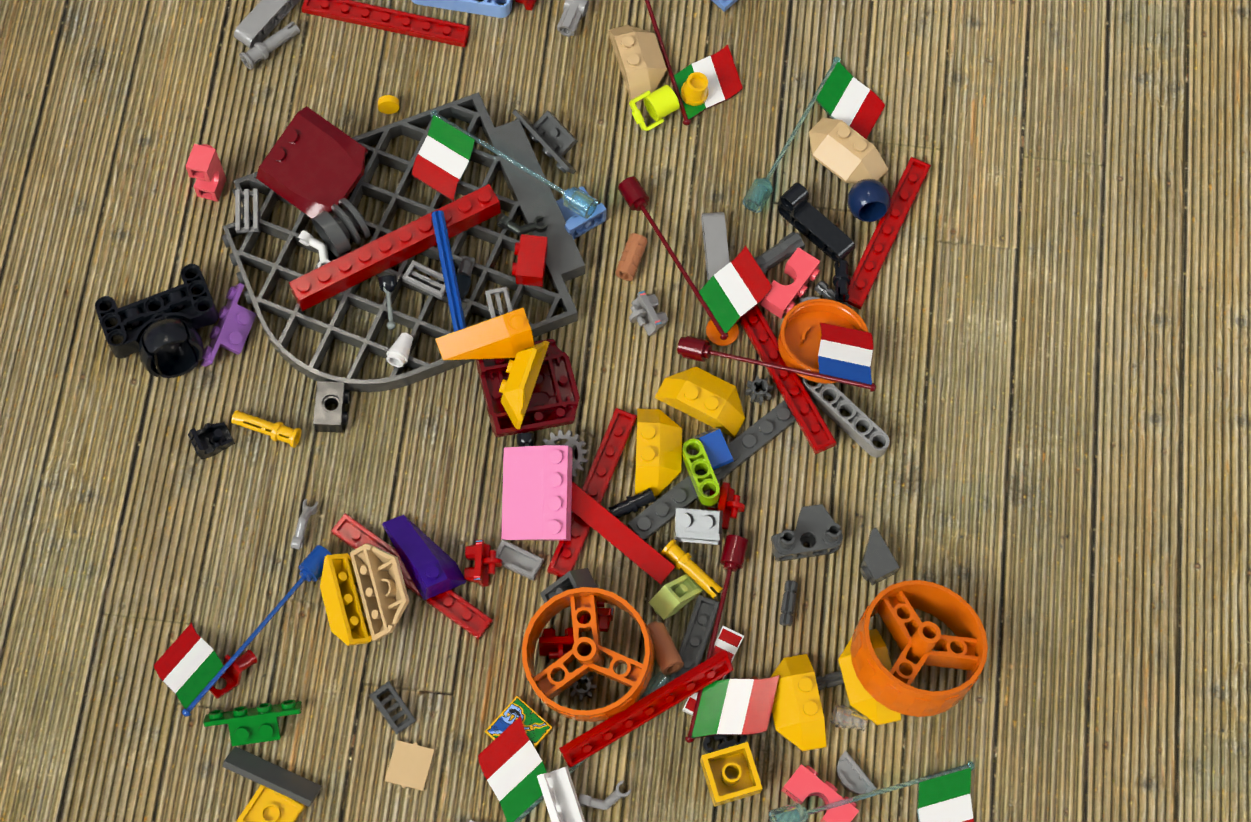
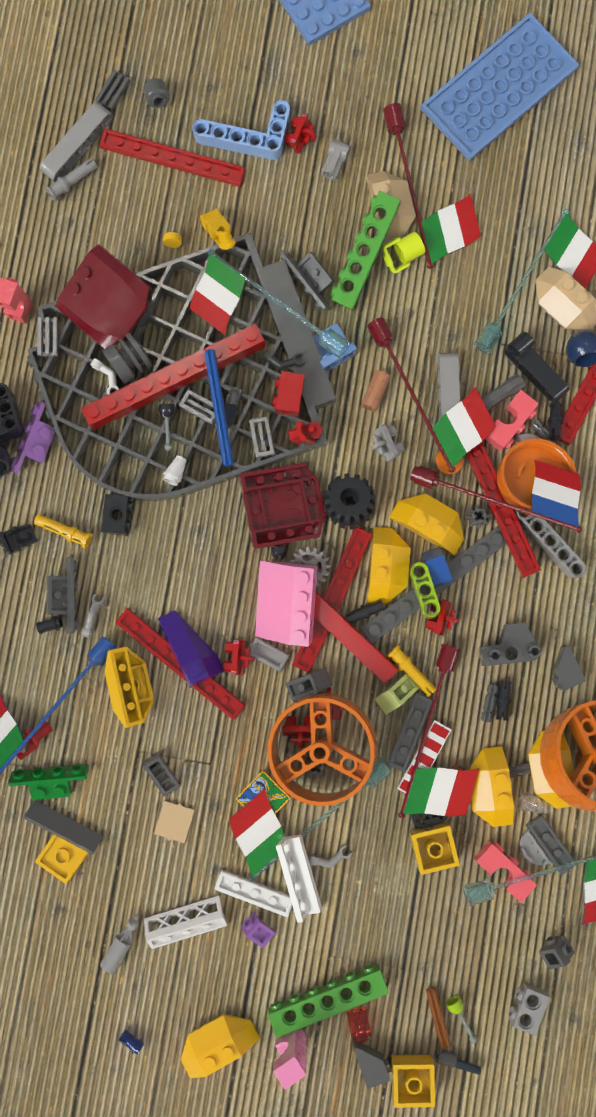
camera: 10 degrees right, 15 degrees up
(251, 537) = (50, 624): none -> black pin
(265, 501) = (61, 595): none -> dark grey bracket
(380, 588) = (153, 680): tan wedge -> none
(441, 89) = (218, 229): none -> yellow piece
(489, 339) = (255, 463): light orange wedge -> none
(521, 381) = (277, 503): yellow wedge -> none
(549, 301) = (305, 433): none -> red hips
(596, 158) = (379, 202): none -> bright green brick
(607, 377) = (349, 490): none -> black wheel
(646, 708) = (370, 791): red tile -> none
(664, 649) = (385, 739): nougat brick -> none
(695, 89) = (439, 236): yellow piece -> none
(698, 525) = (419, 635): plate -> none
(804, 599) = (503, 700): none -> black pin
(874, 766) = (550, 842): none -> dark grey tile

